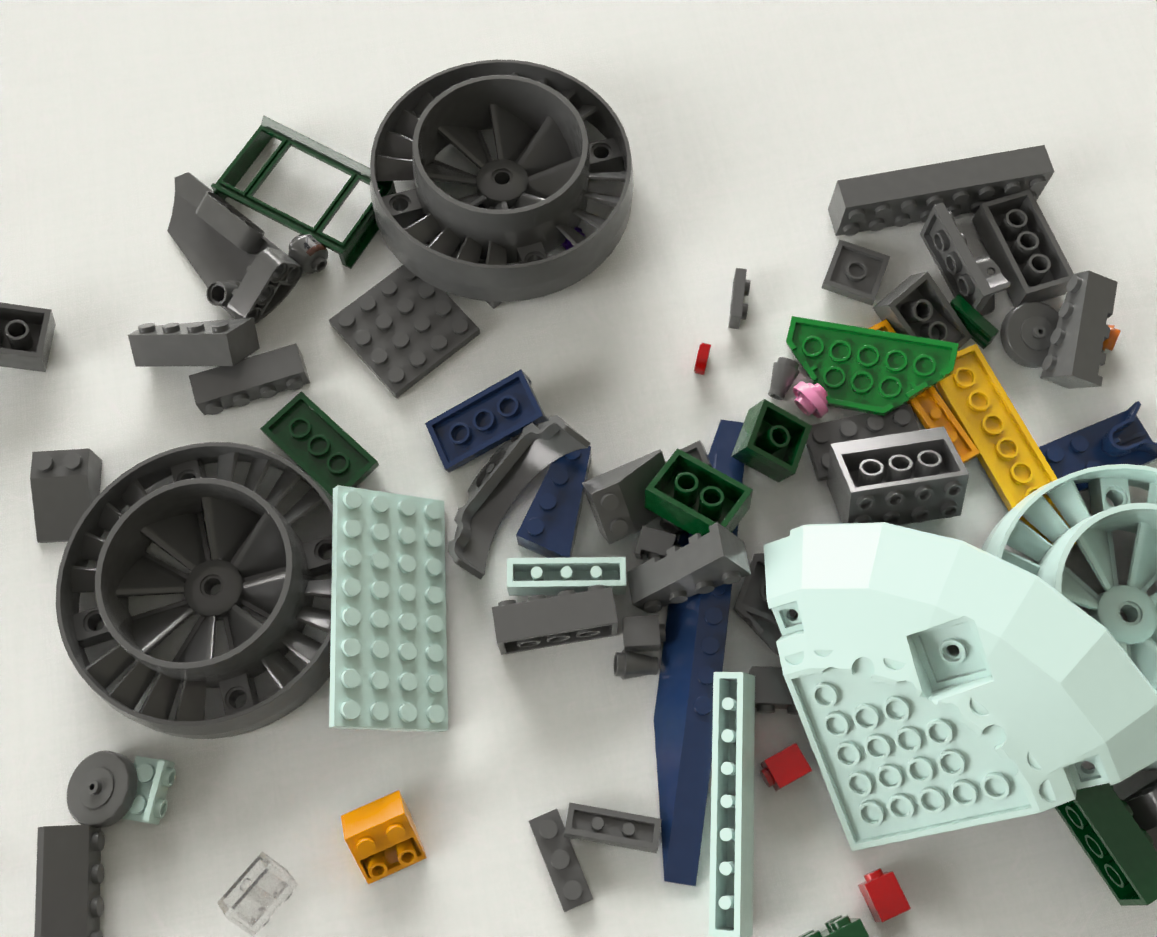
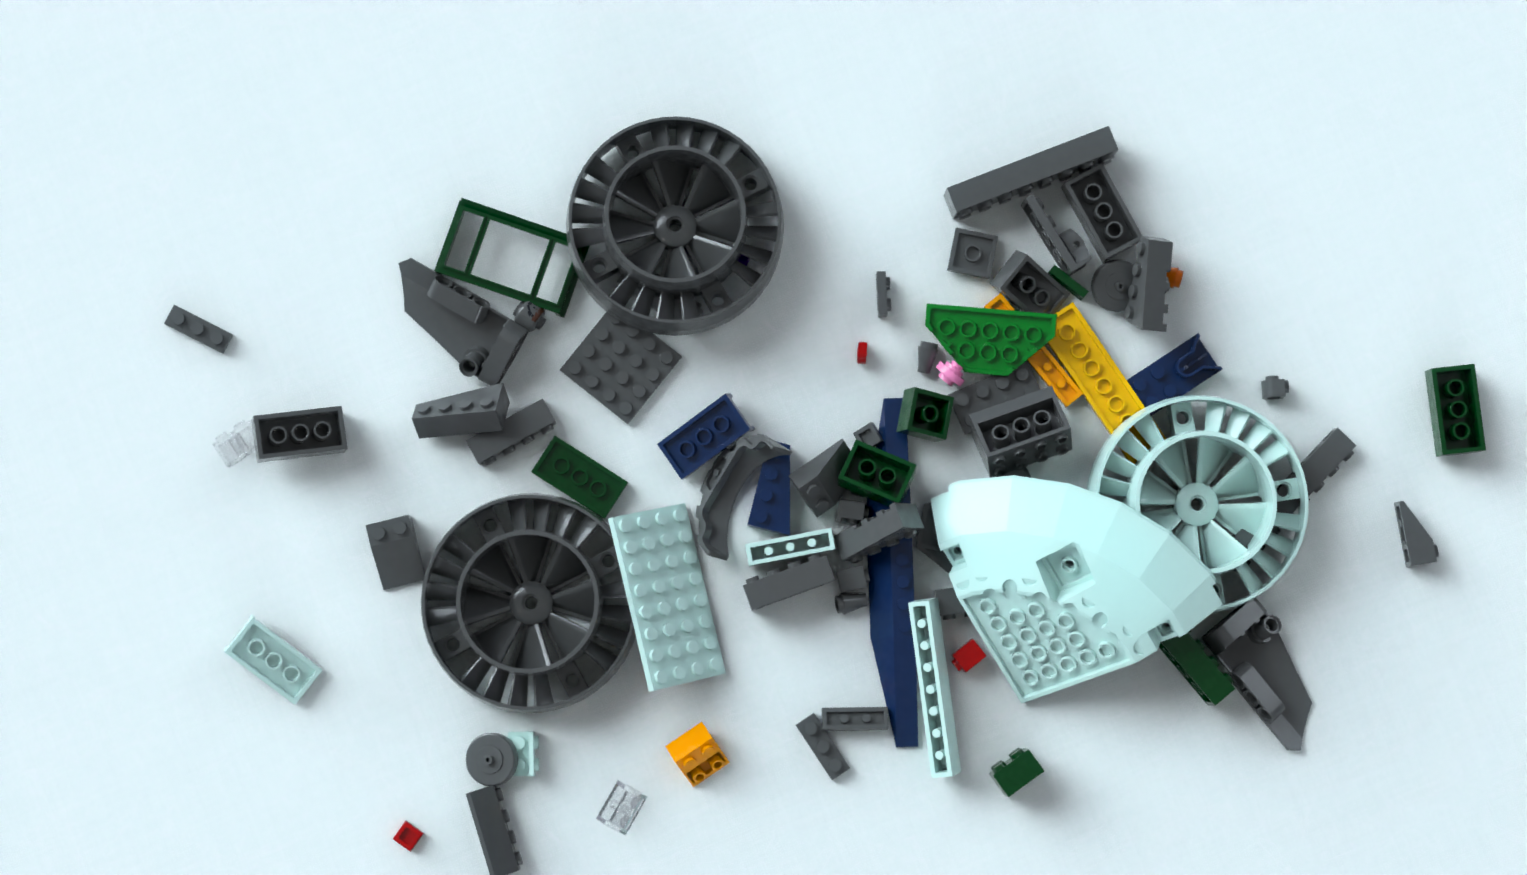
camera: 20 degrees left, 15 degrees up
(883, 895) = (1045, 729): red brick -> none

